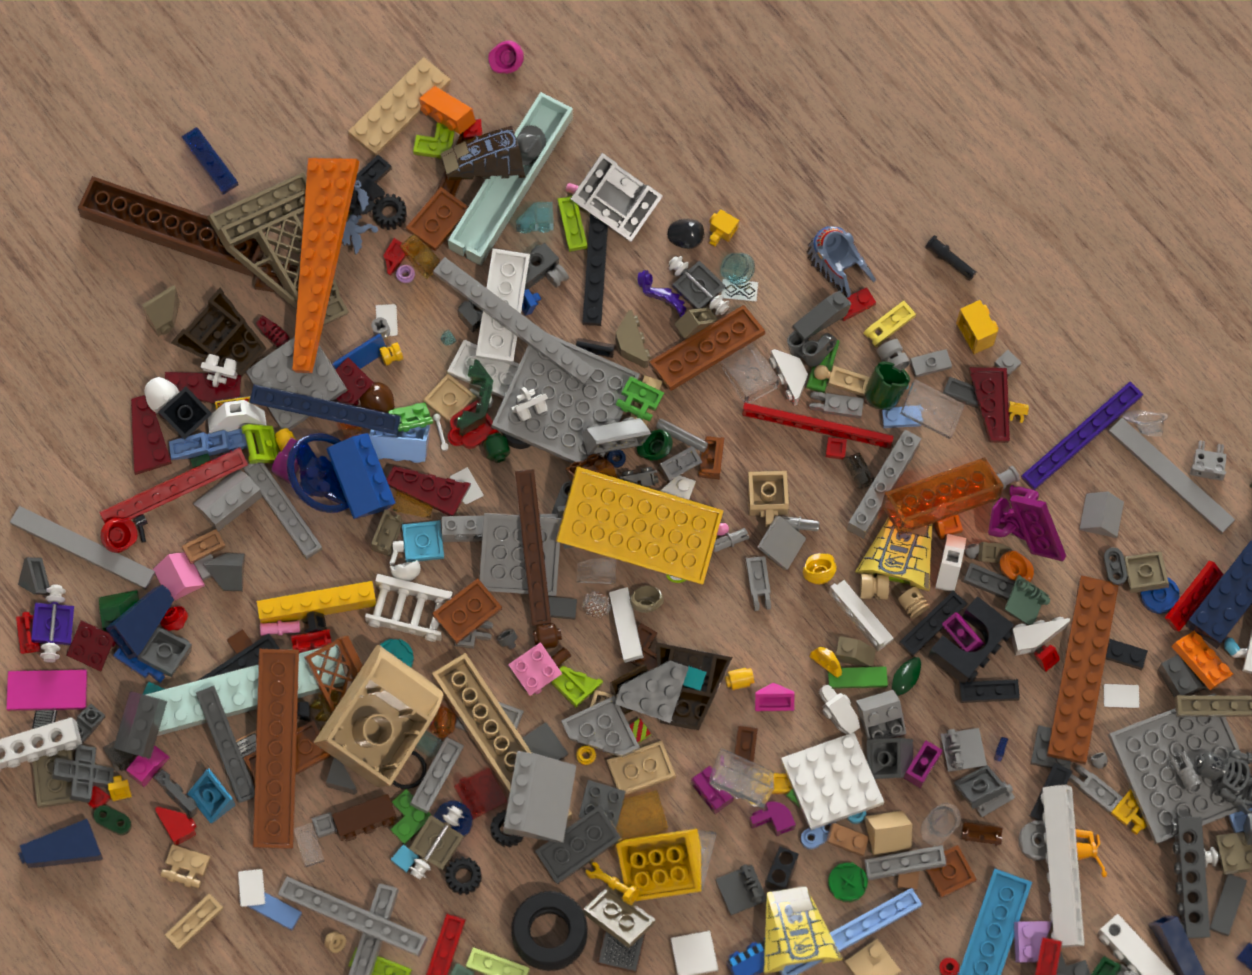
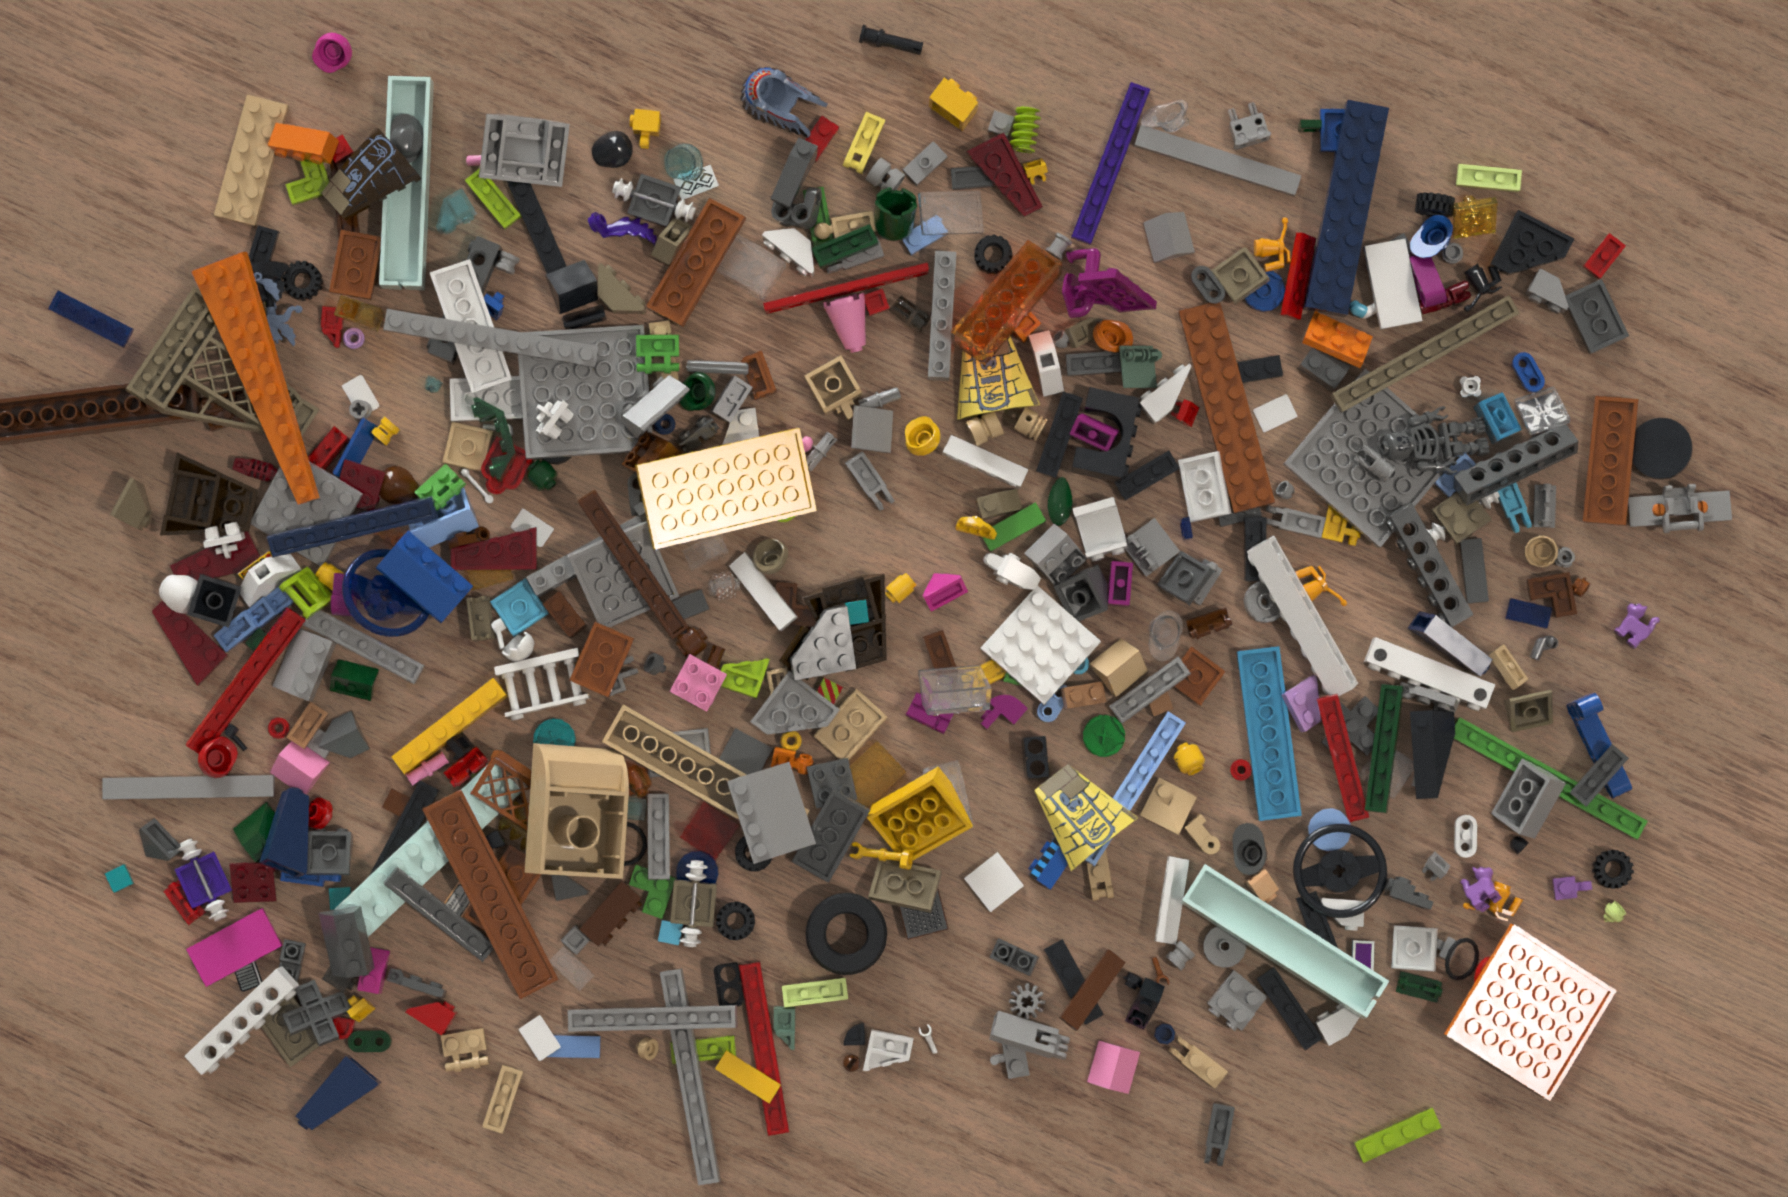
camera: 25 degrees left, 15 degrees up
(179, 532) = (272, 728): none -> red plate
(211, 797) = (452, 970): dark azure slope -> none
(259, 530) = (353, 679): none -> dark green panel
(340, 346) = (329, 448): none -> red hinge
(407, 463) = (477, 535): none -> reddish brown plate
(427, 907) = (725, 985): none -> black piece
(456, 563) = (565, 614): none -> reddish brown brick
(583, 776) = (783, 756): none -> orange plate
(599, 317) = (573, 286): none -> black slope
(741, 889) = (1006, 796): dark grey hinge -> none
(806, 449) = (848, 320): none -> bright pink cone
(833, 391) = (845, 246): none -> dark green plate
(910, 935) = (1189, 758): none -> yellow head
(929, 713) = (1101, 529): none -> white panel
(949, 447) = (986, 242): none -> black tyre
(1024, 374) = (1024, 129): none -> lime piece
(1033, 723) = (1204, 487): none -> white tile
(1179, 561) = (1267, 247): none -> light orange piece

